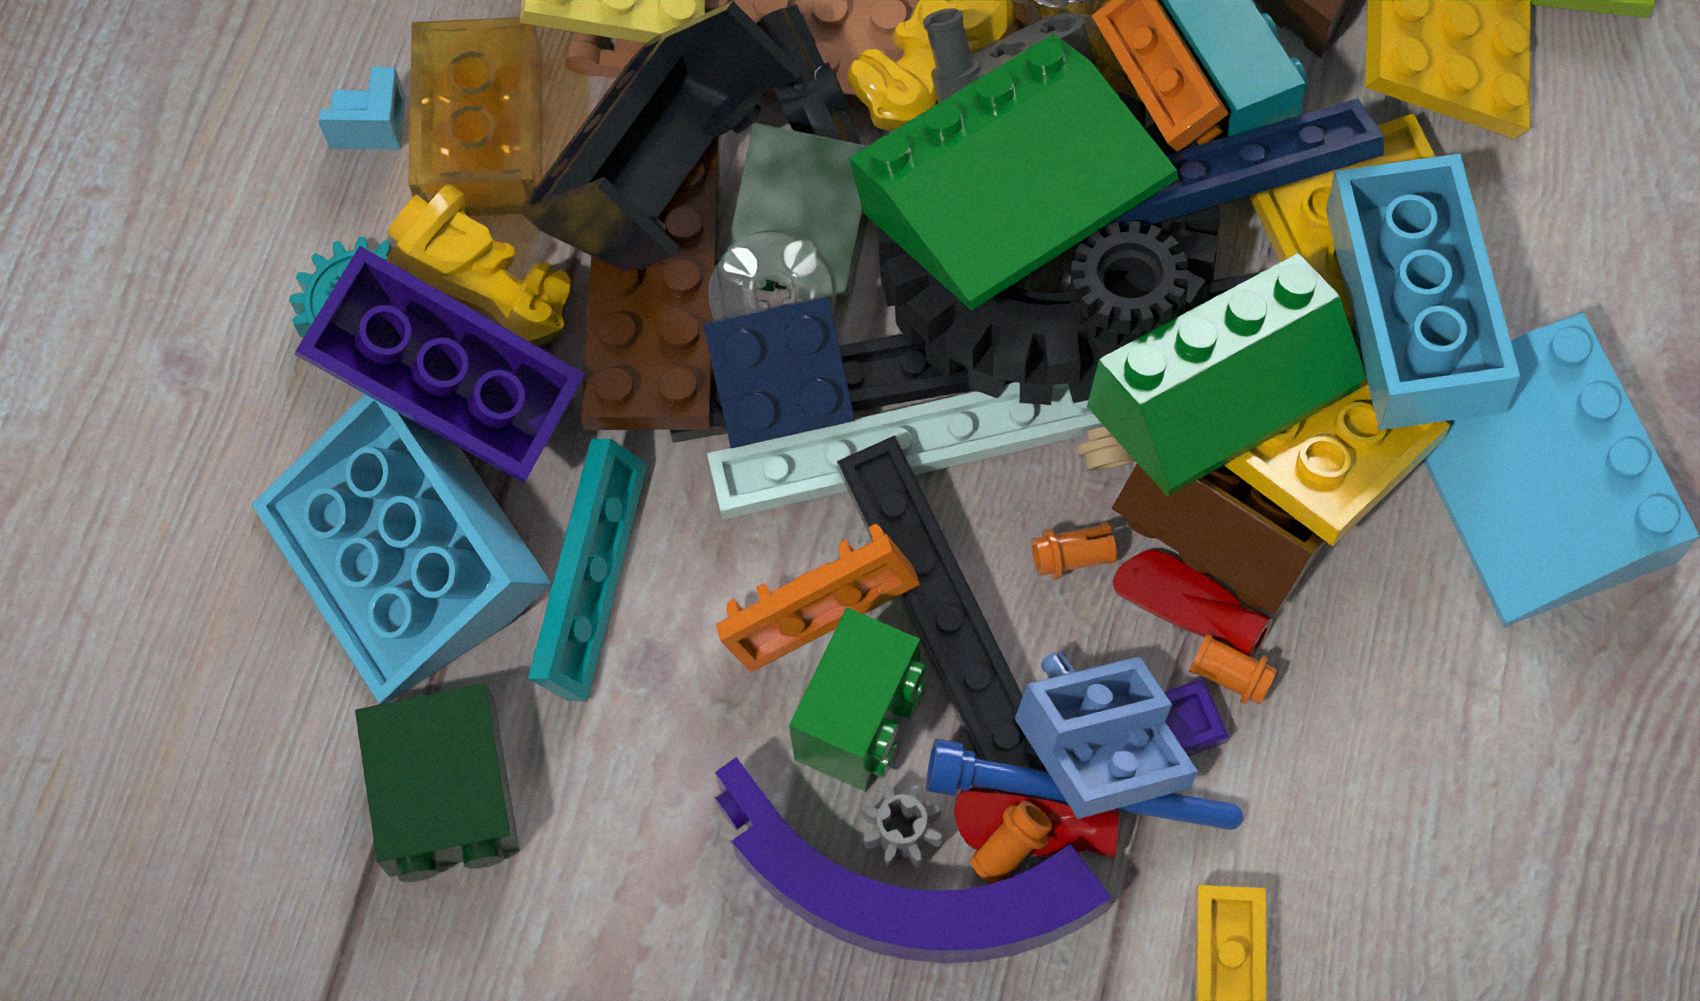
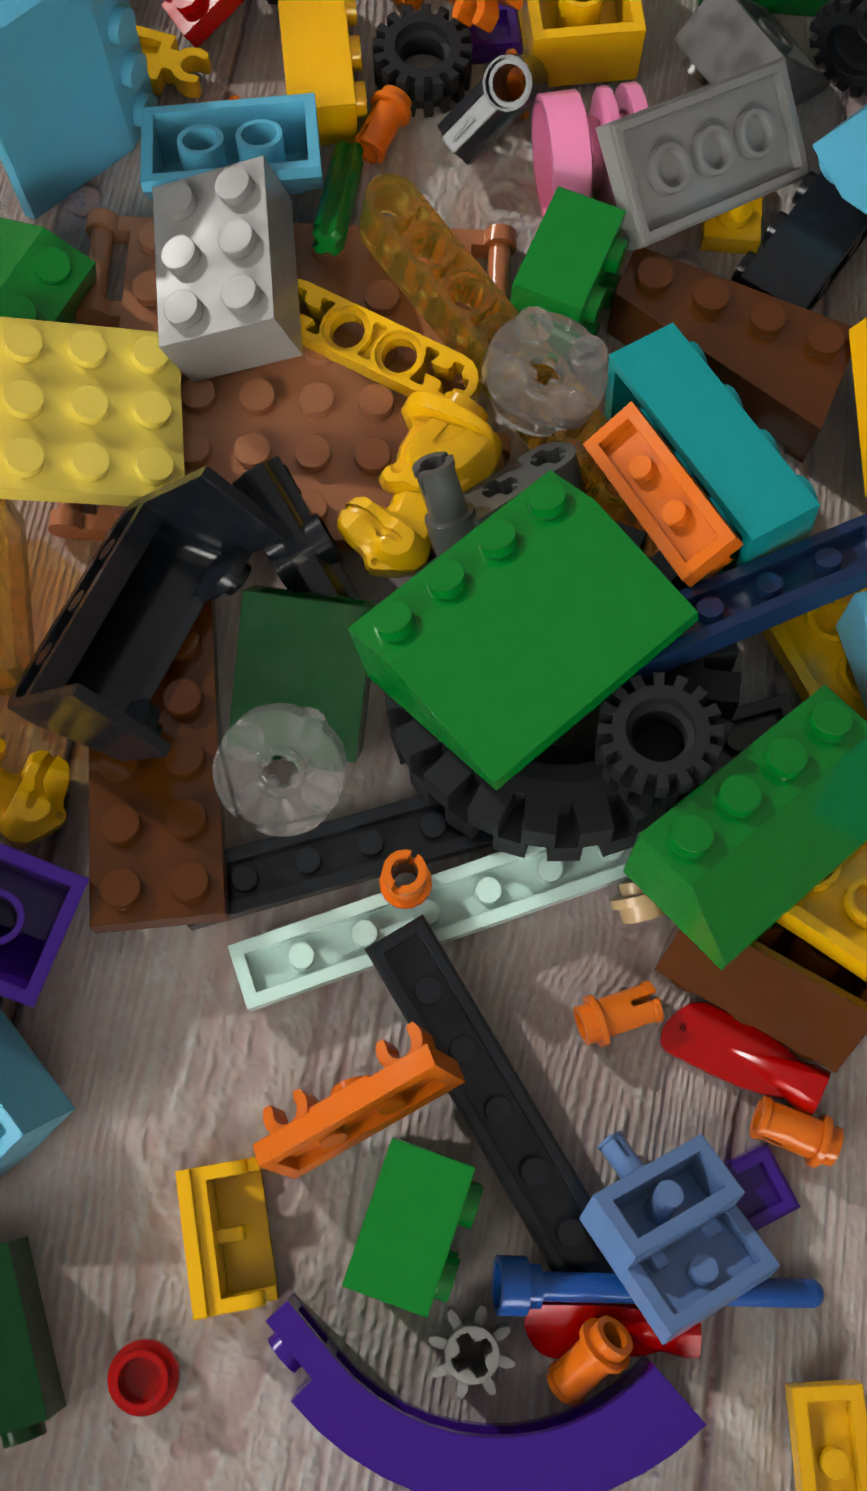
camera: 10 degrees left, 5 degrees up
(588, 571) = (112, 1091): teal plate -> none
(595, 826) = (143, 1377): none -> red plate
(683, 708) = (226, 1237): none -> yellow hinge
(779, 371) = (293, 855): dark blue plate -> none
(881, 403) = (408, 895): none -> orange pin

